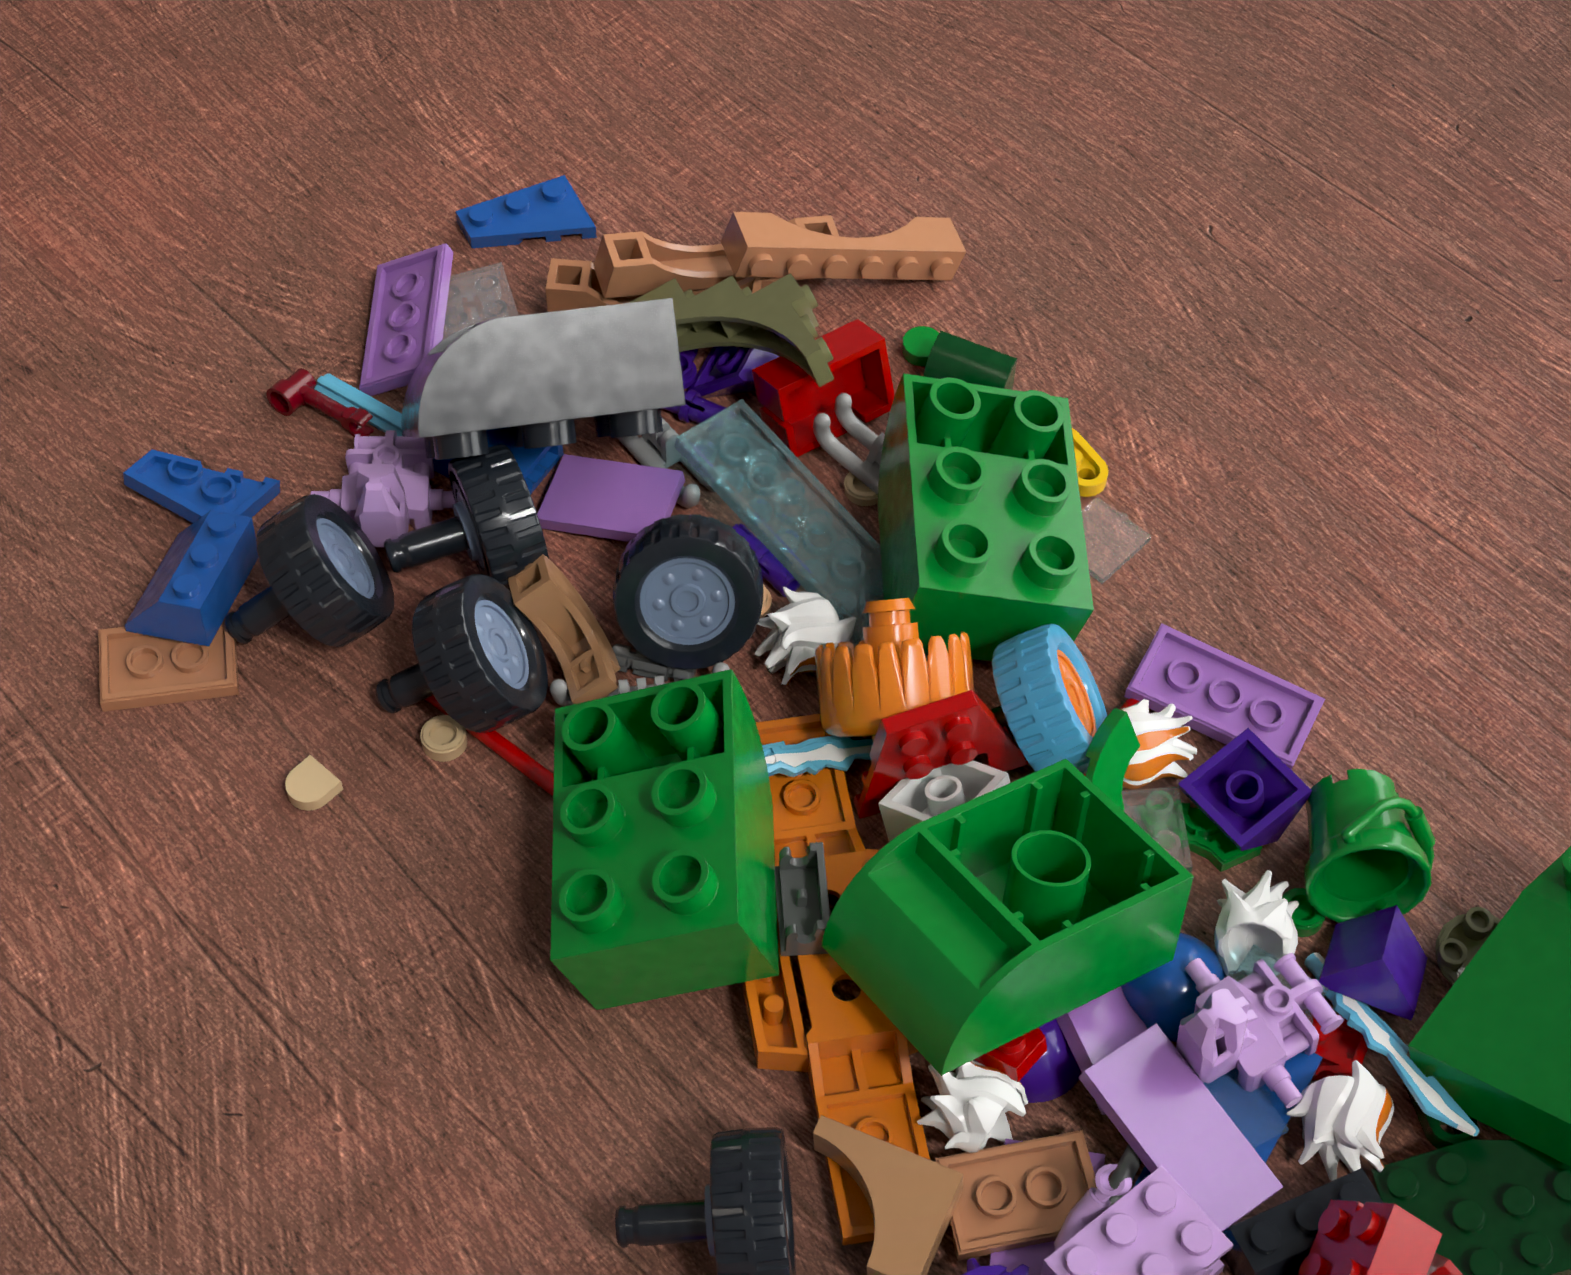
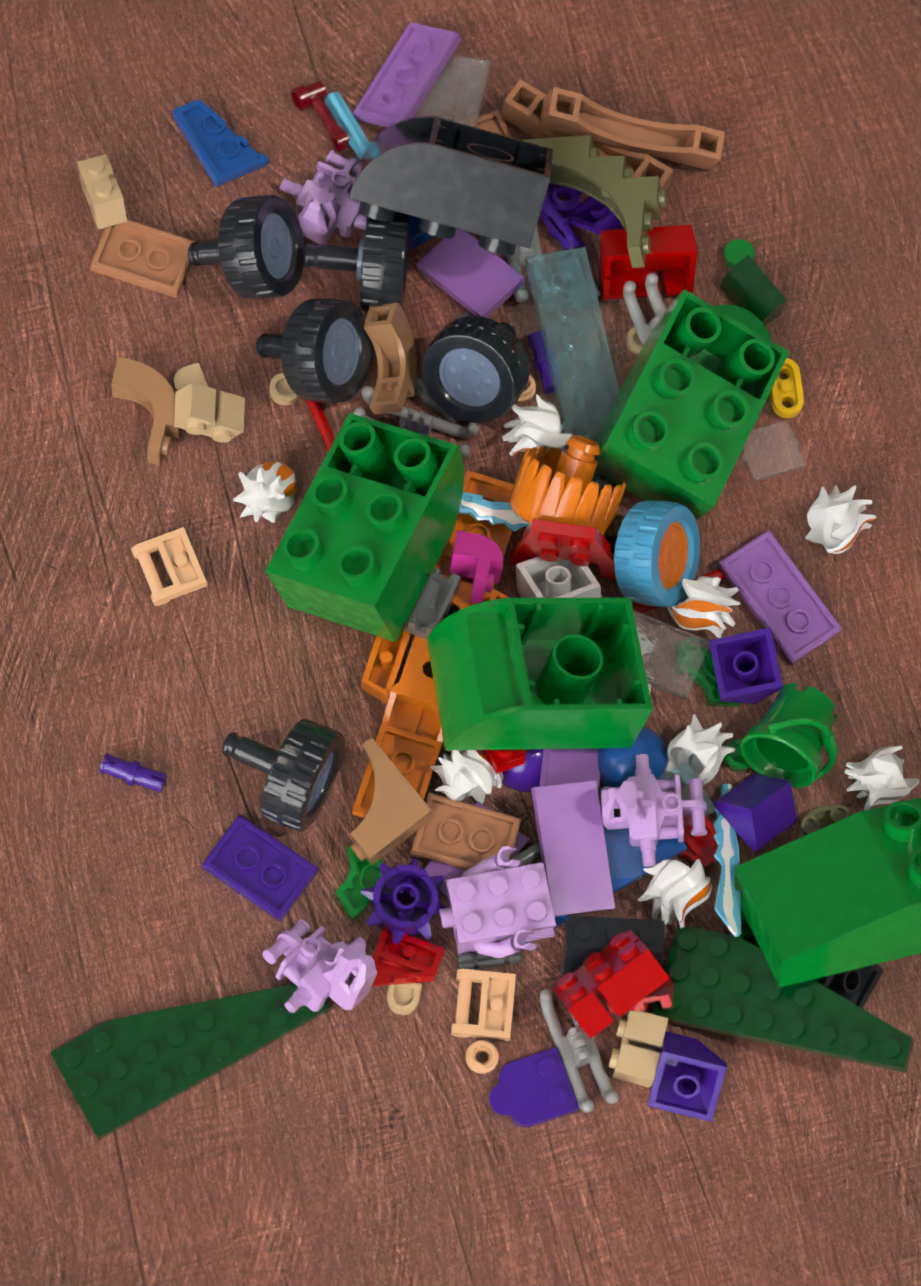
camera: 20 degrees right, 15 degrees up
(73, 603) = (102, 191): none -> tan piece
(197, 580) = (184, 209): blue slope -> none
(268, 818) = (149, 388): none -> medium nougat arch
(348, 813) = (201, 413): none -> tan piece
(412, 1018) = (179, 563): none -> light nougat plate
(491, 868) = (267, 490): none -> white hair
(532, 212) = (532, 26): blue wing -> none
(773, 247) = (665, 144): nougat arch -> none
(828, 816) = (478, 559): none -> dark pink brick
(1111, 753) = (664, 608): green tile -> none
(1237, 573) = (837, 519): none -> white hair
(1500, 848) = (880, 777): none -> white hair

